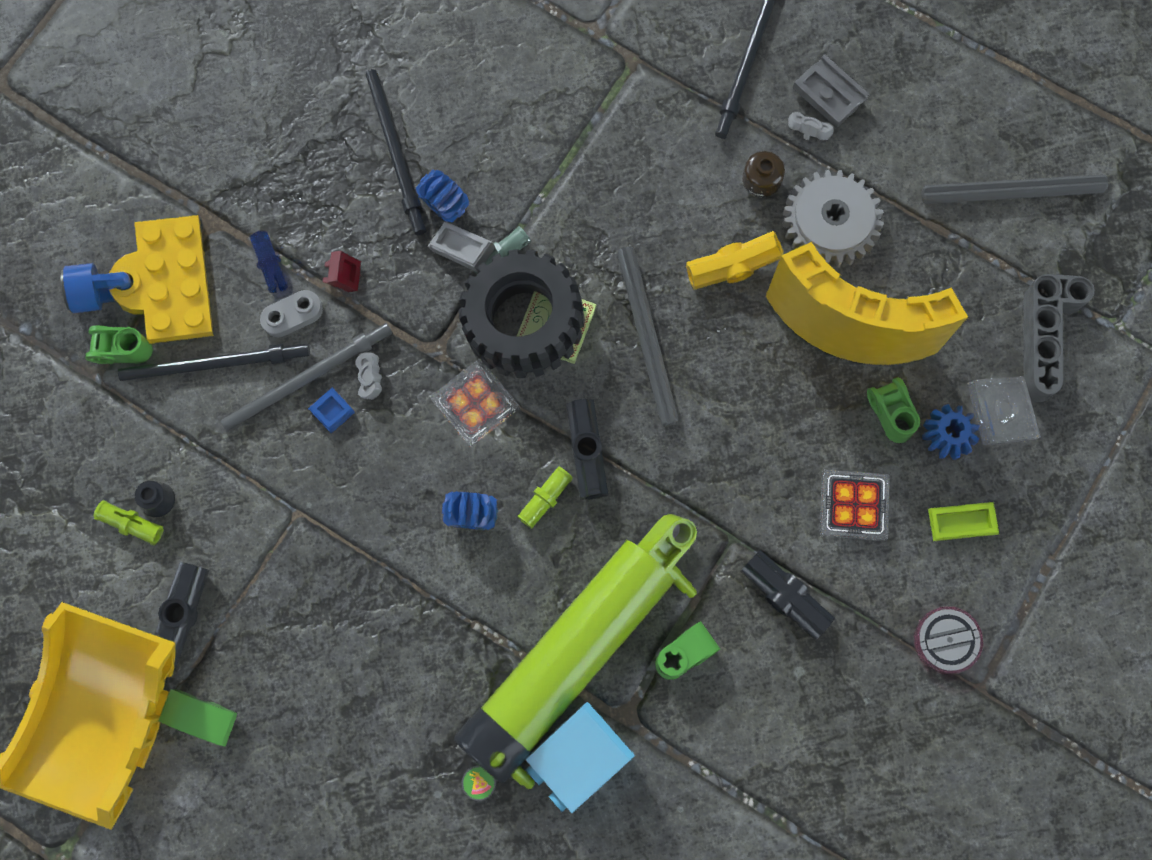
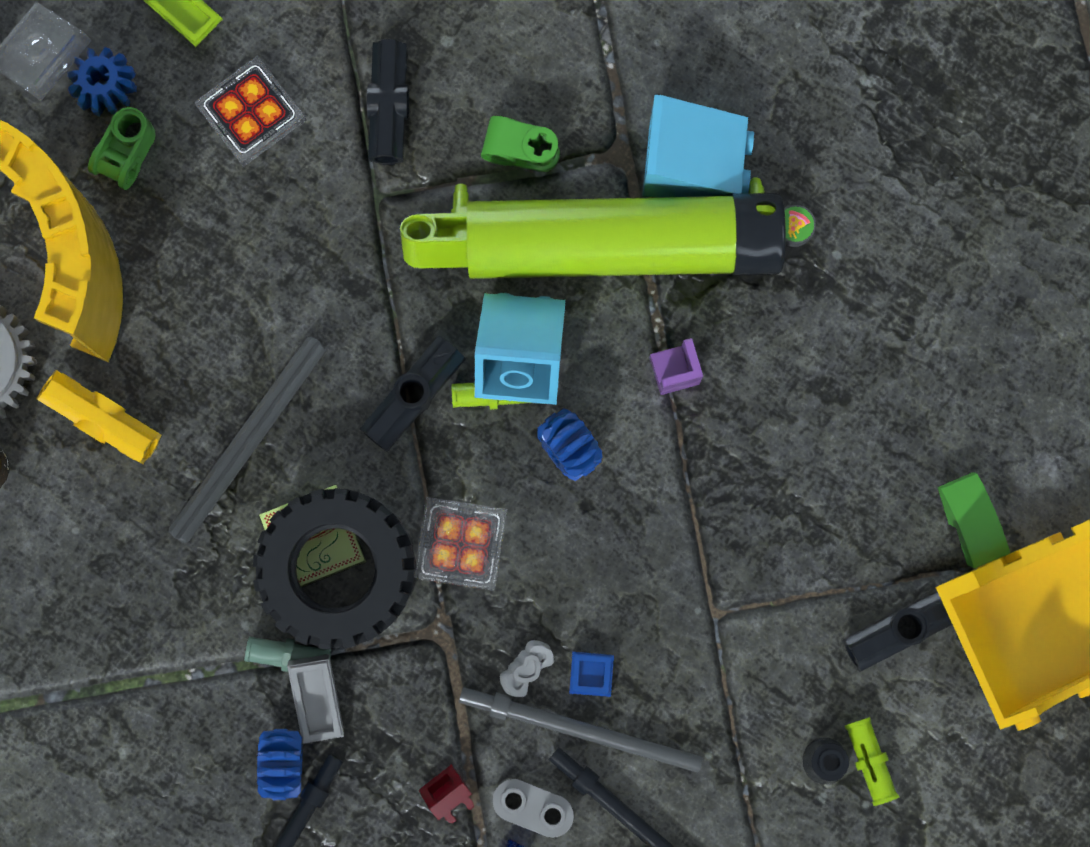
camera: 135 degrees left, 5 degrees up
(458, 620) = (676, 368): none -> medium lavender panel
(556, 532) = (519, 348): none -> medium azure slope

